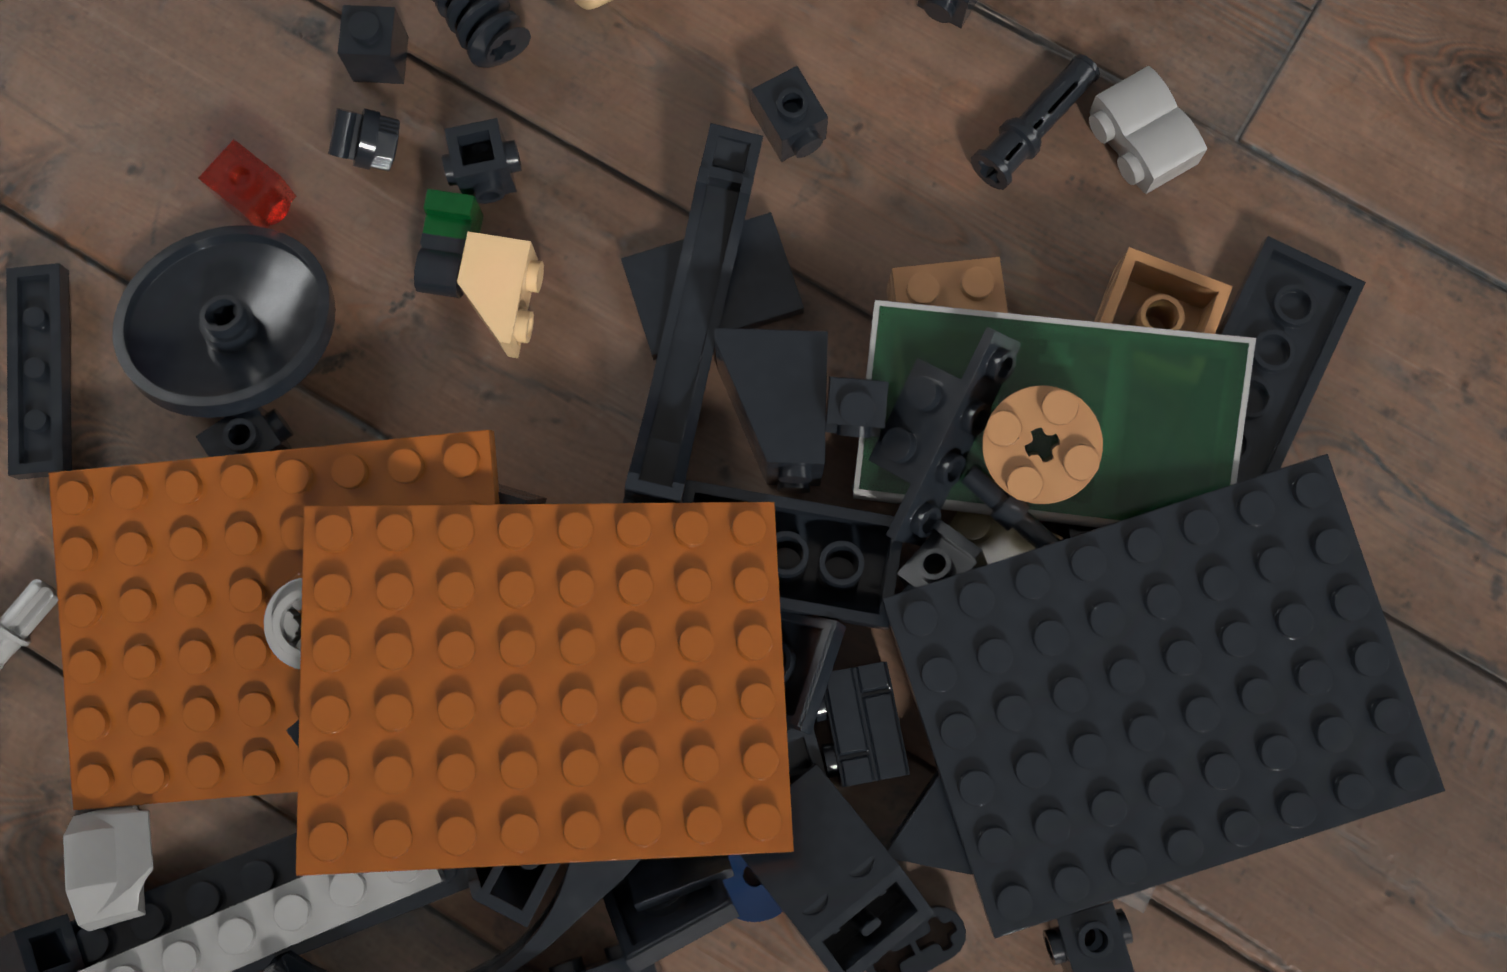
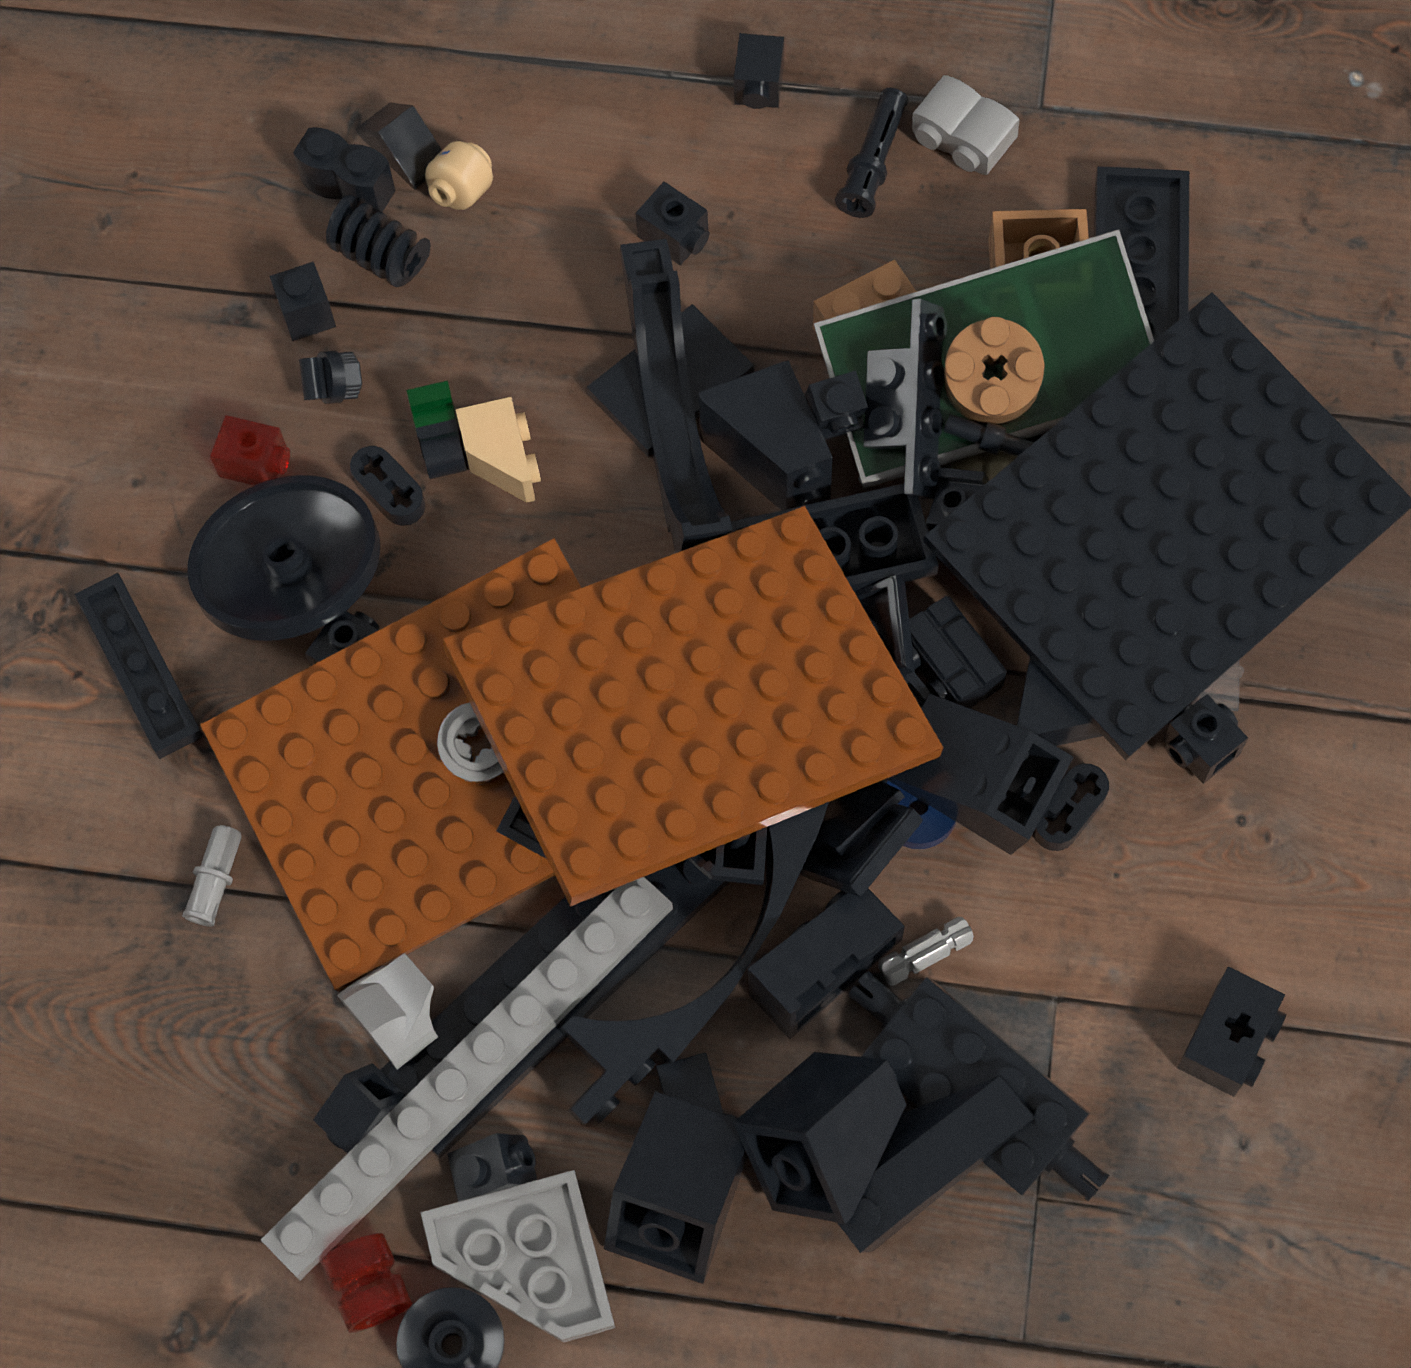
camera: 20 degrees left, 10 degrees down
(362, 284) = (394, 479): none -> black beam
(481, 160) = (438, 352): black brick -> none

